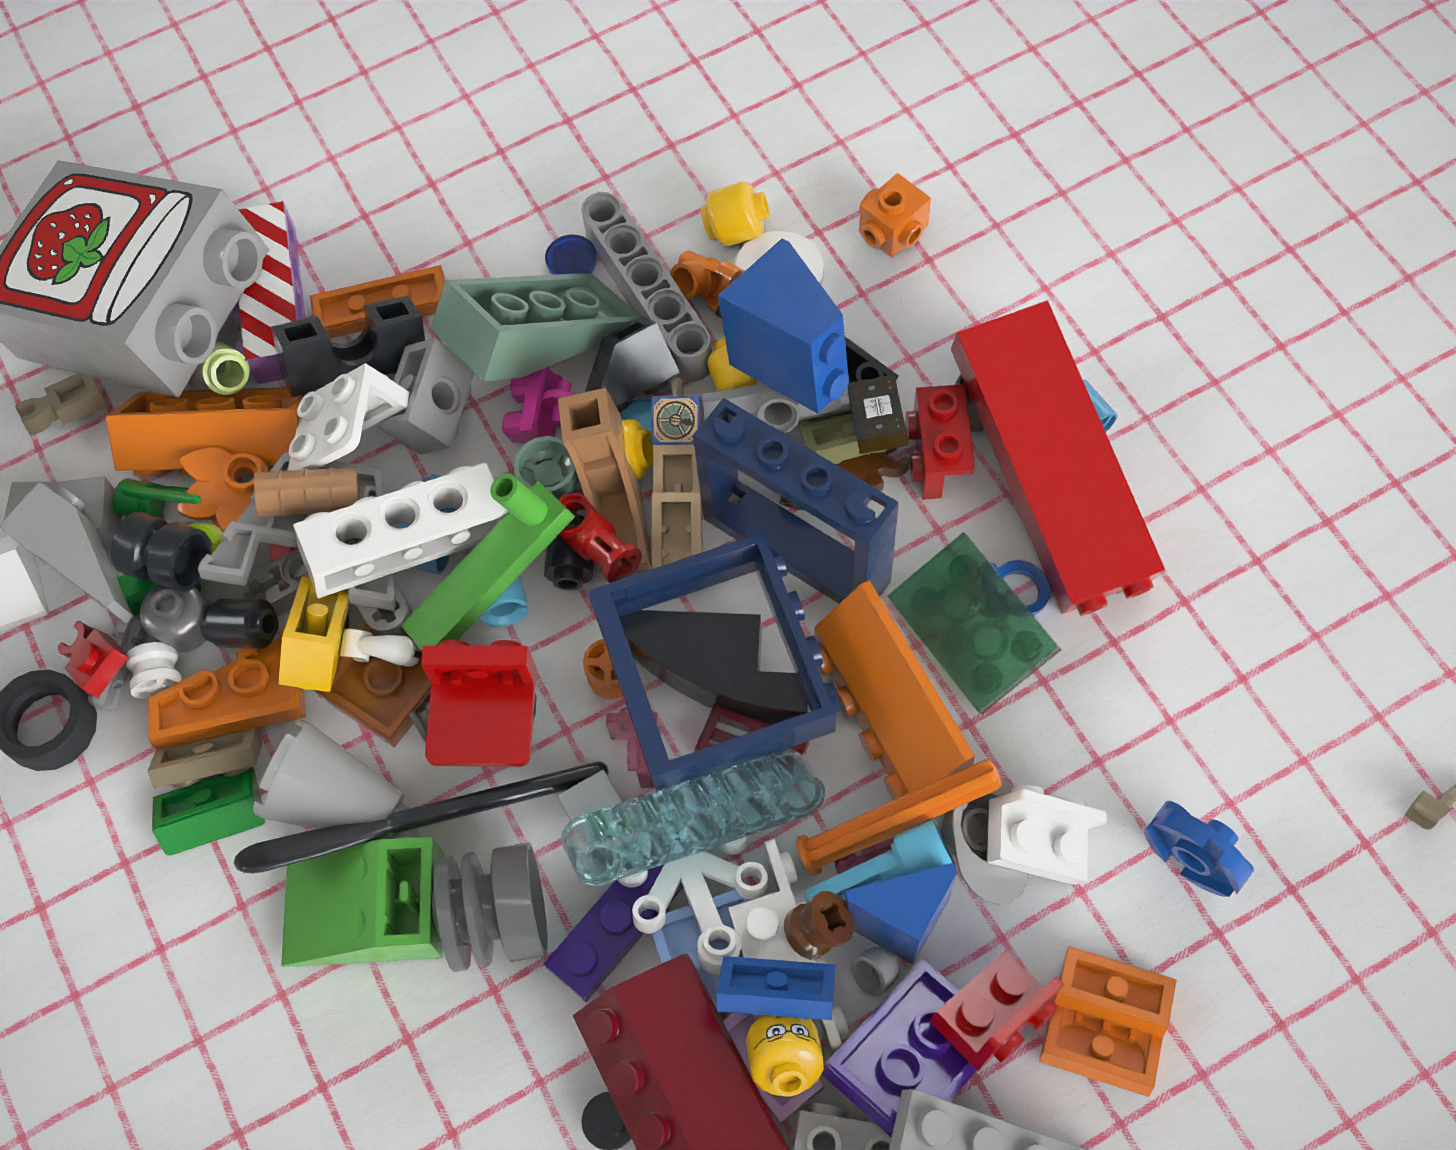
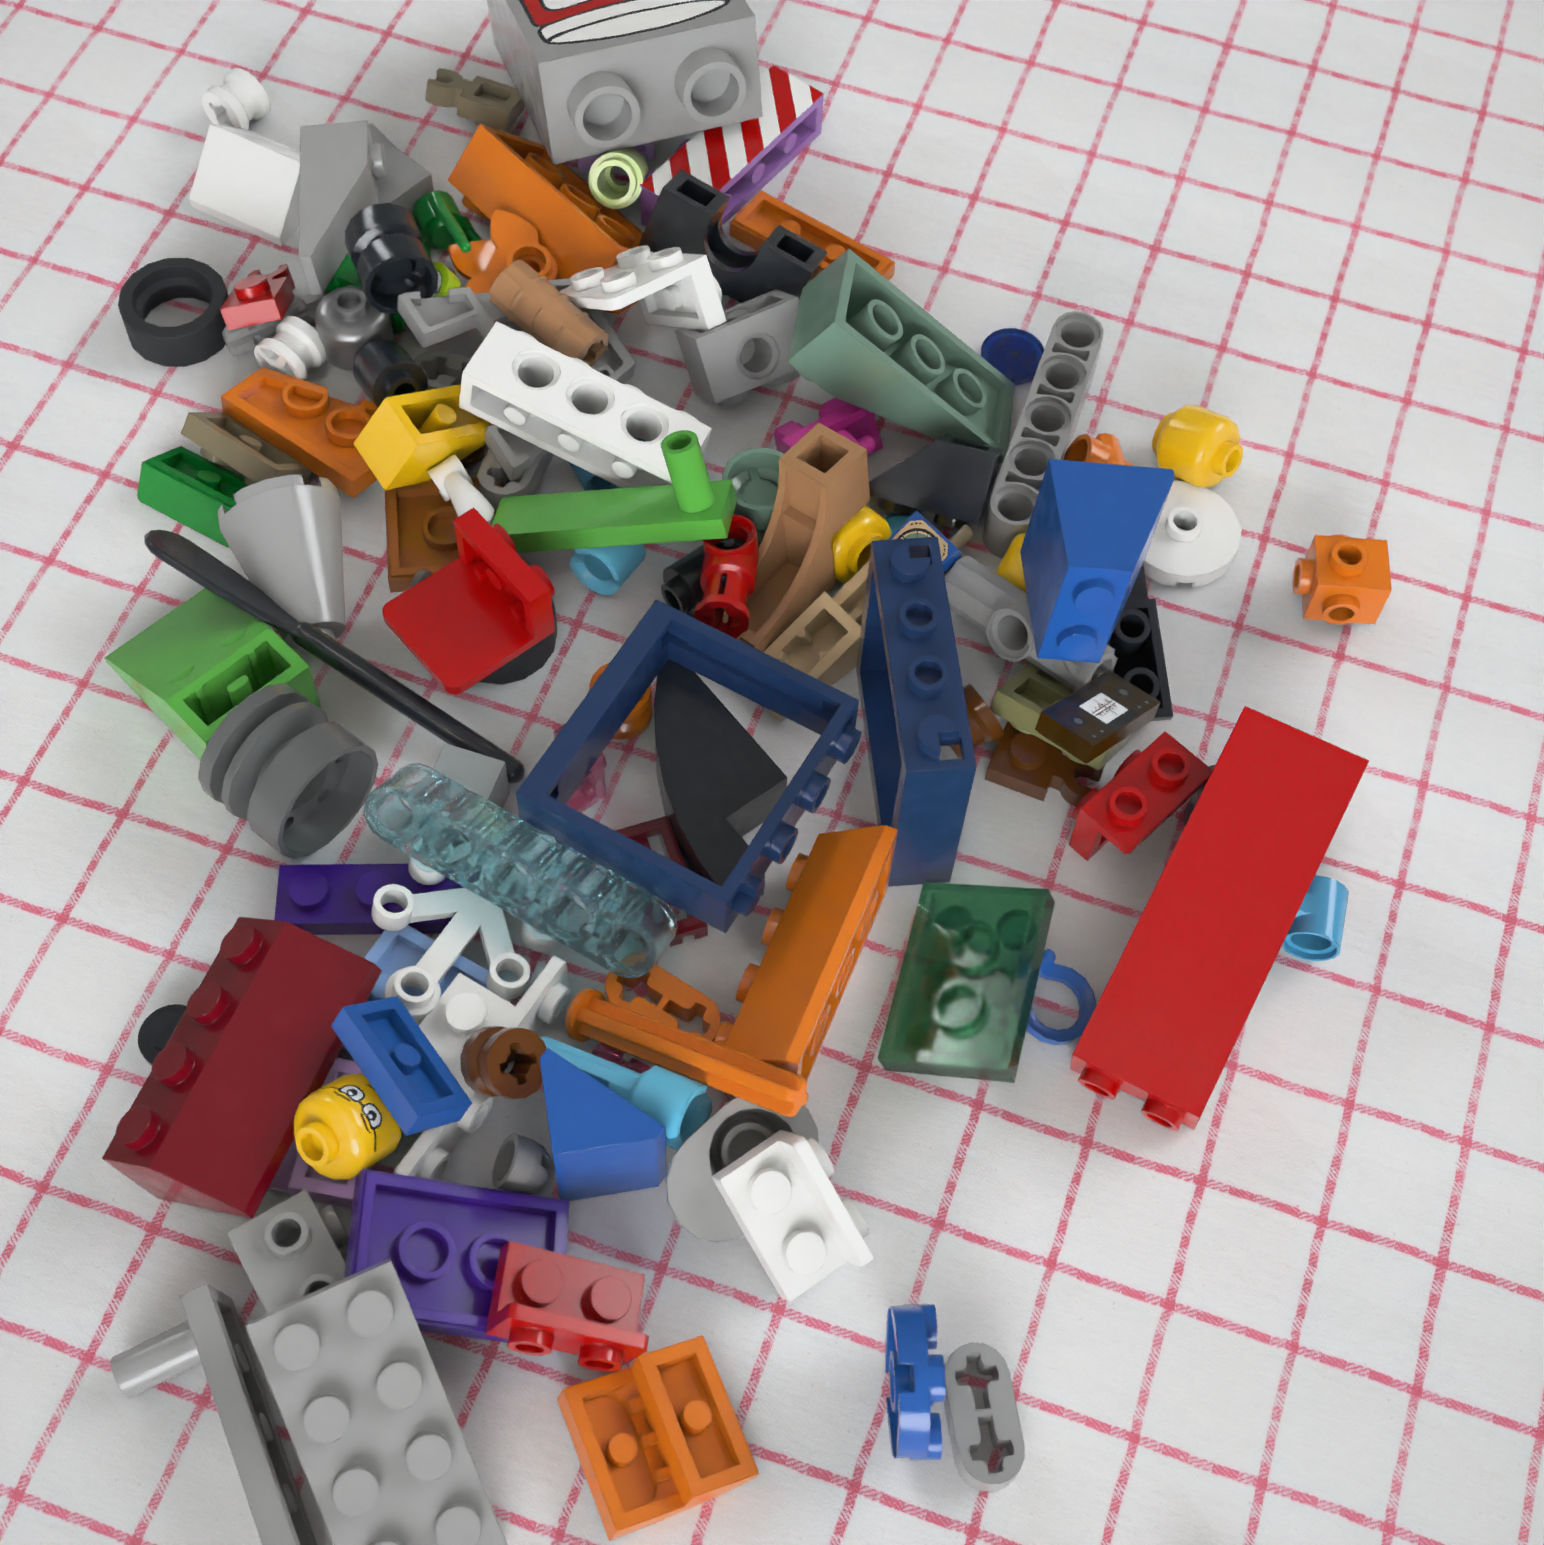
camera: 40 degrees right, 5 degrees down
(840, 794) = (670, 996): none -> orange beam
(1245, 821) = (999, 1414): none -> light grey beam

